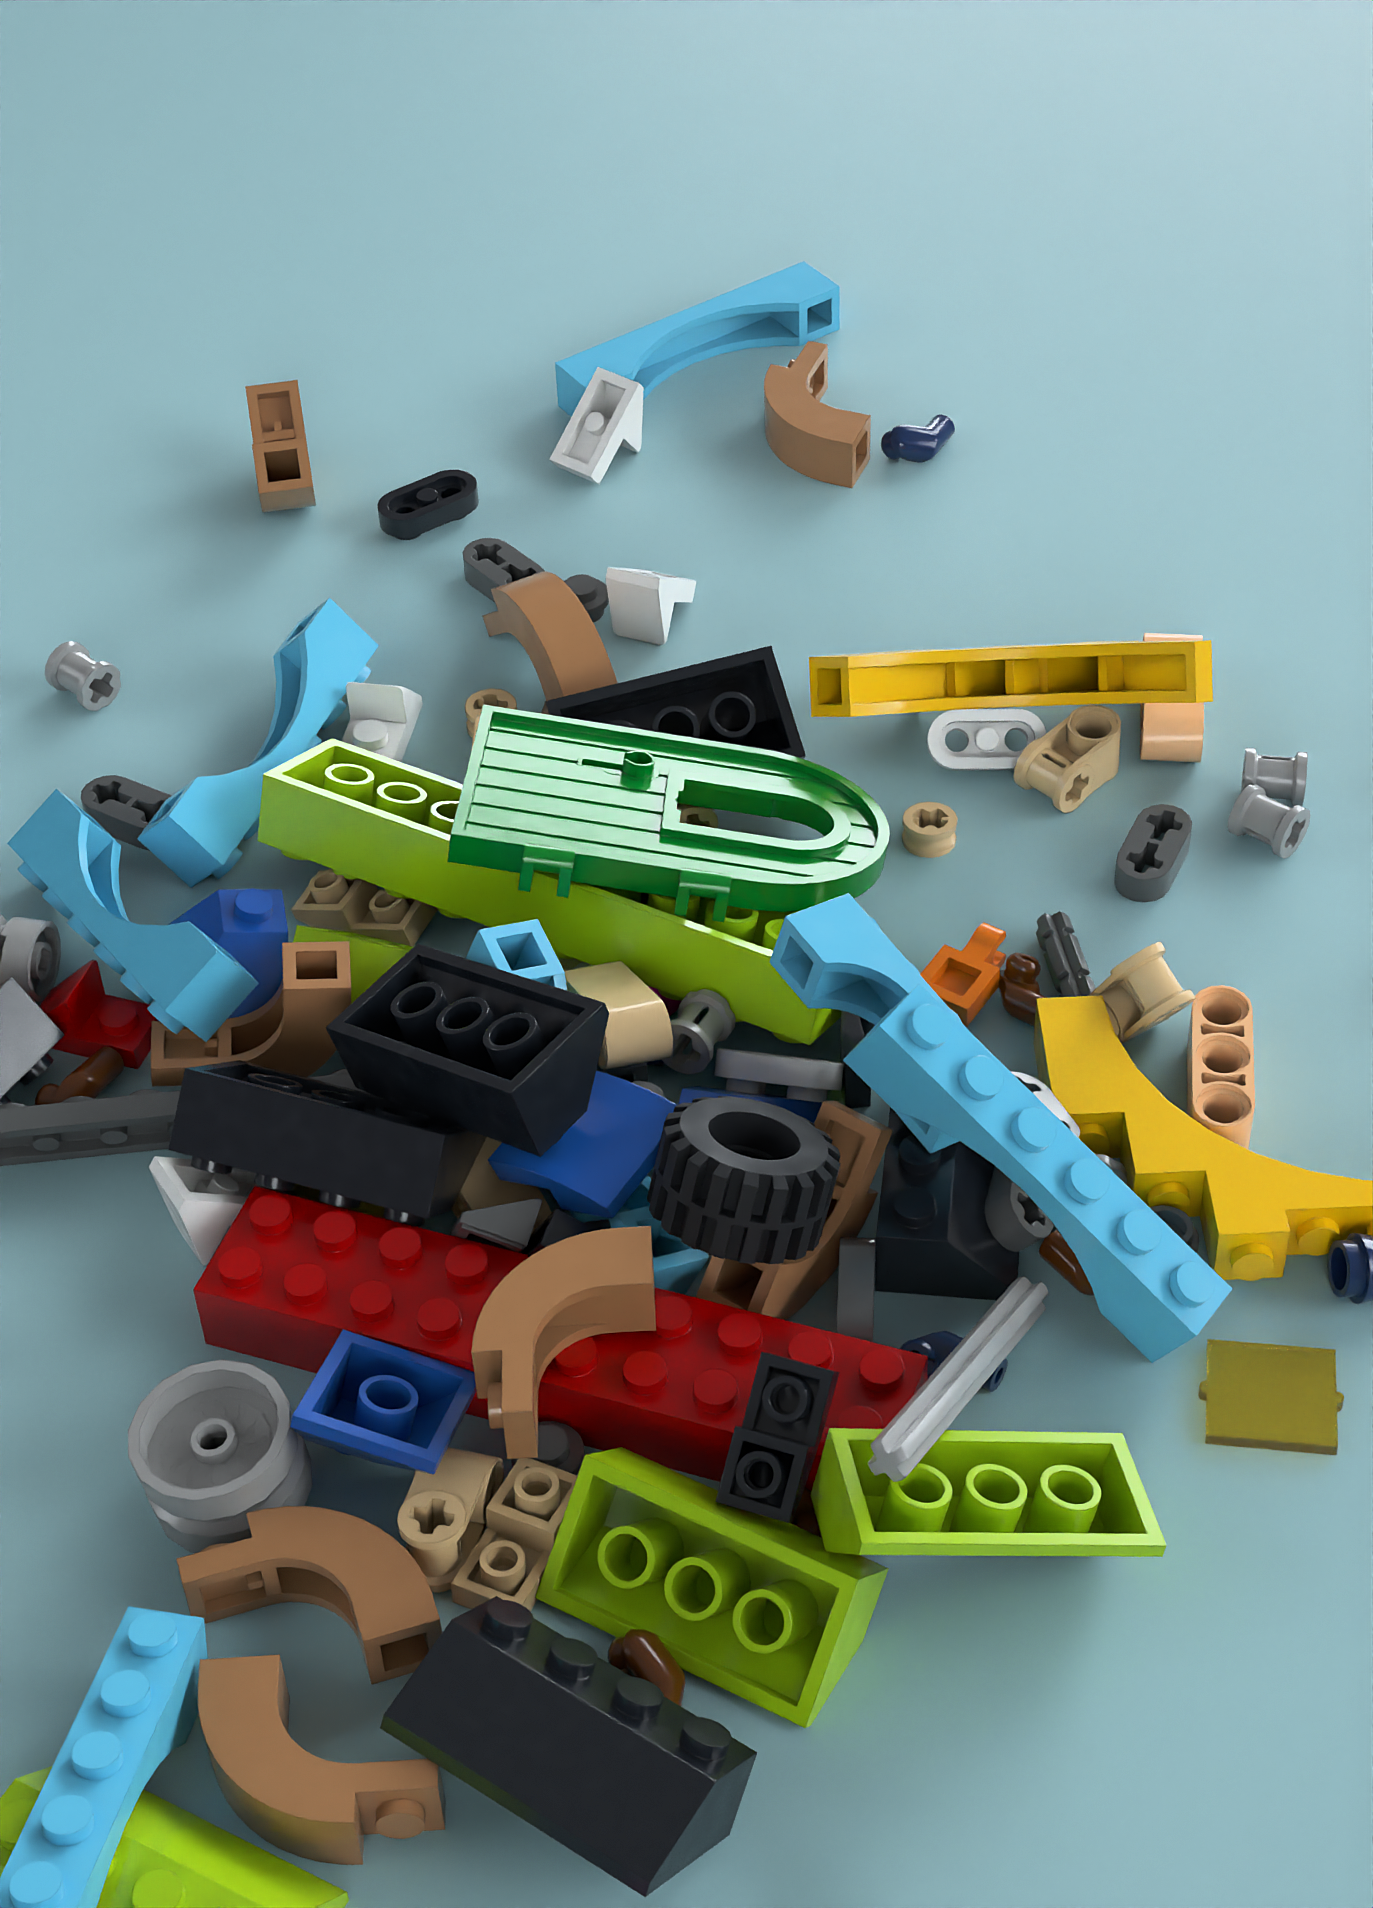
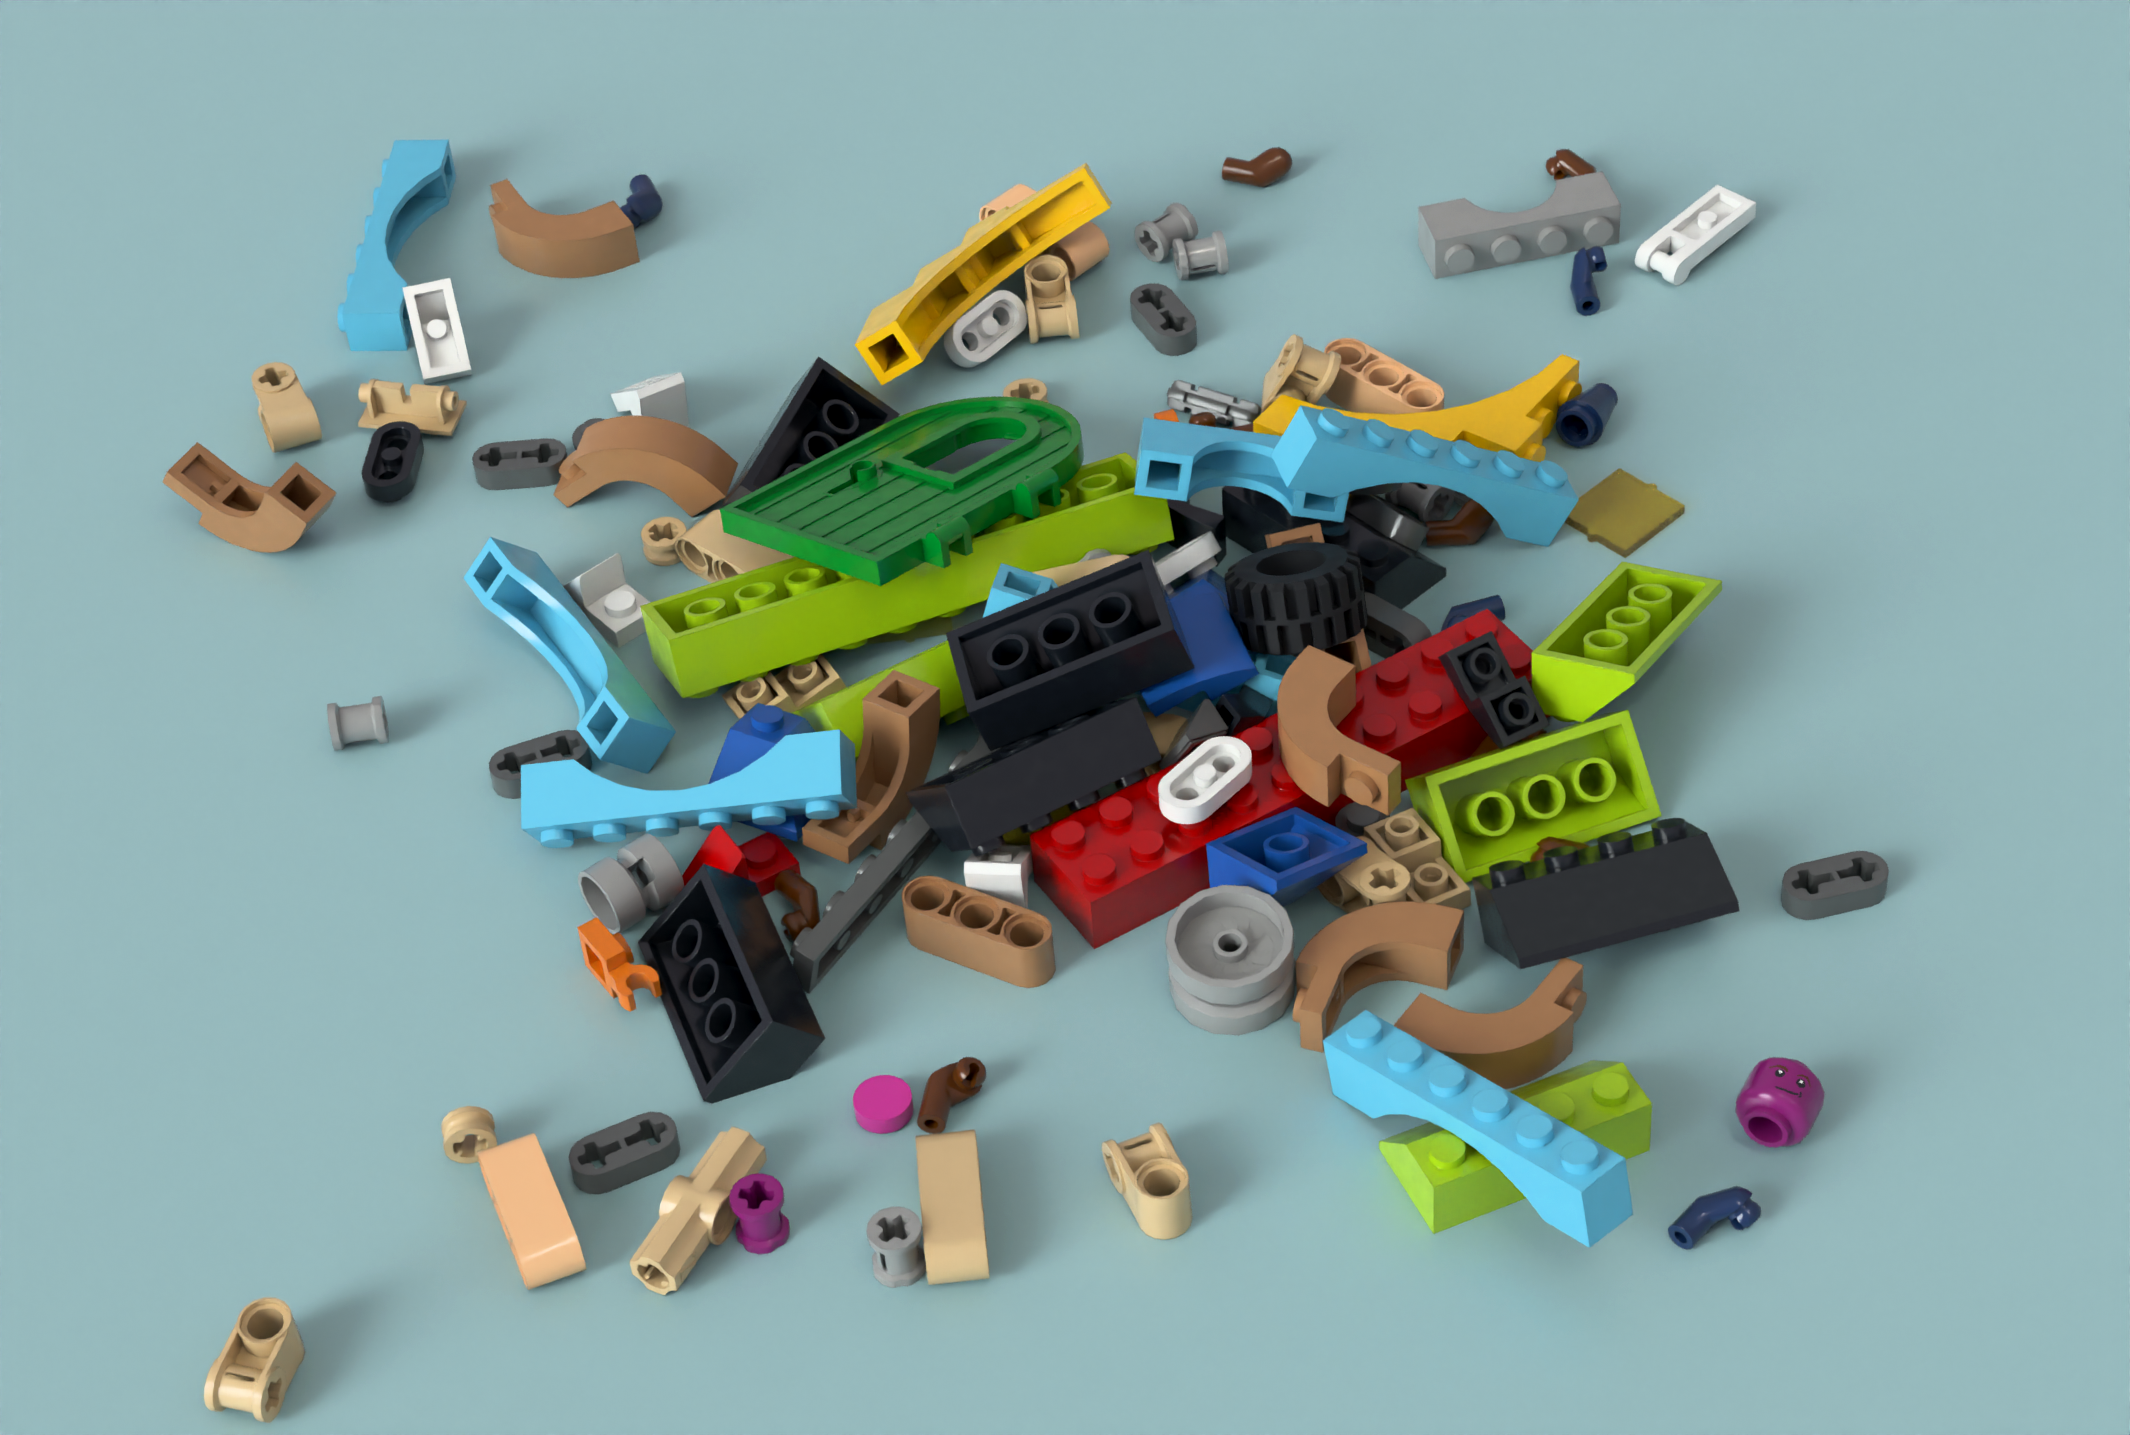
camera: 50 degrees left, 0 degrees up
(131, 1237) = (979, 931): none -> medium nougat beam
(412, 1268) = (1205, 780): none -> white plate
(424, 408) = (284, 407): none -> tan piece
(502, 474) = (428, 407): none -> tan hinge
(957, 1380) = (1528, 595): light grey axle -> none

